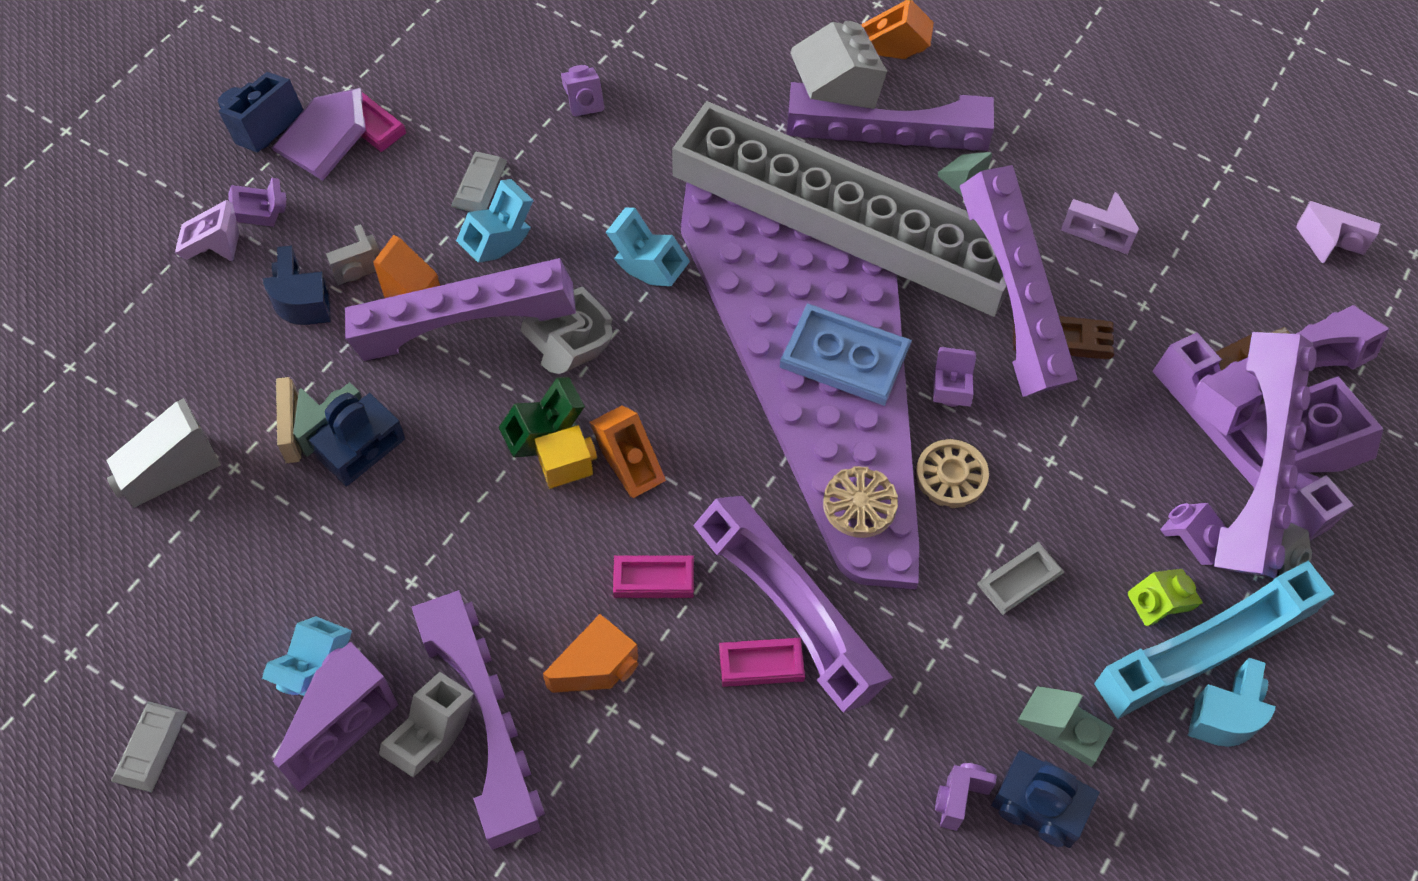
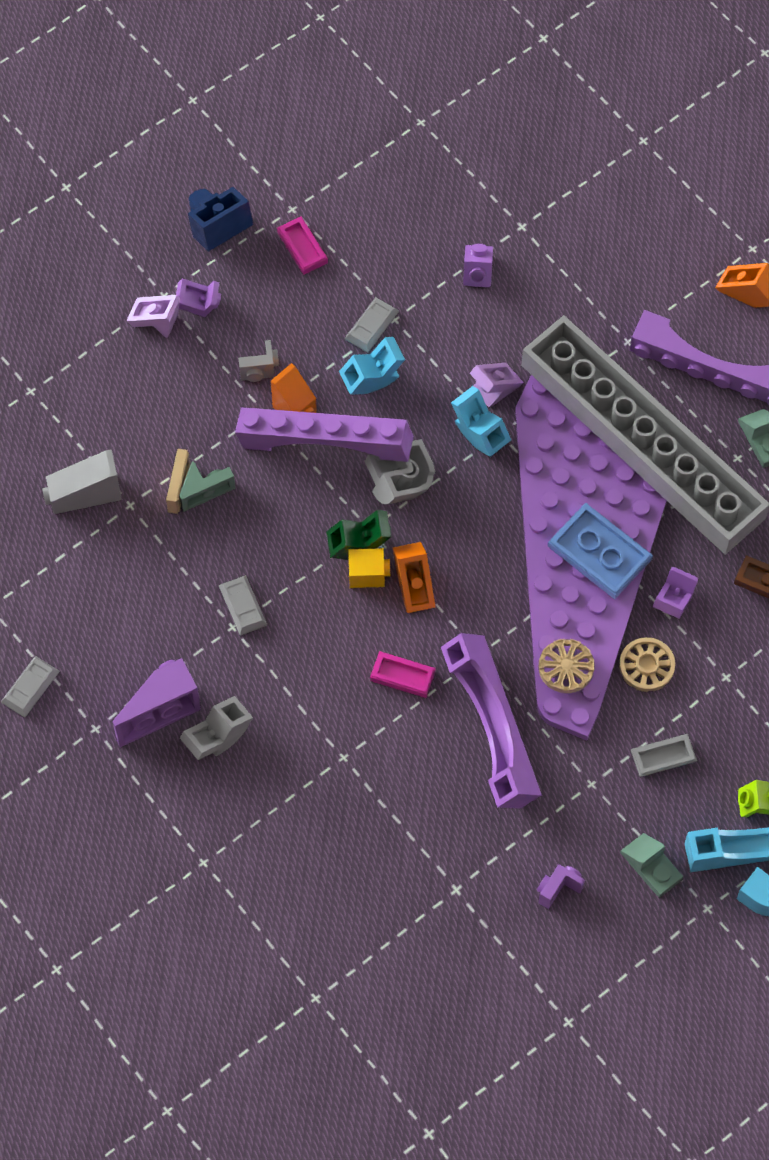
camera: 20 degrees right, 5 degrees up
(297, 296) = (207, 384): dark blue brick -> none
(308, 648) = (152, 653): medium azure brick -> none
(323, 132) = (263, 247): medium lavender tile -> none
(355, 436) = (222, 509): dark blue brick -> none
(417, 550) = (242, 605): none -> light grey tile
(505, 804) = (252, 796): medium lavender arch -> none
(593, 660) = (341, 720): orange slope -> none
(649, 200) = (495, 381): none -> lavender slope
(761, 662) = (457, 757): dark pink tile -> none
(840, 65) = (686, 307): light grey slope -> none
(1041, 347) = (749, 489): medium lavender arch -> none
(1044, 800) = (613, 906): dark blue brick -> none

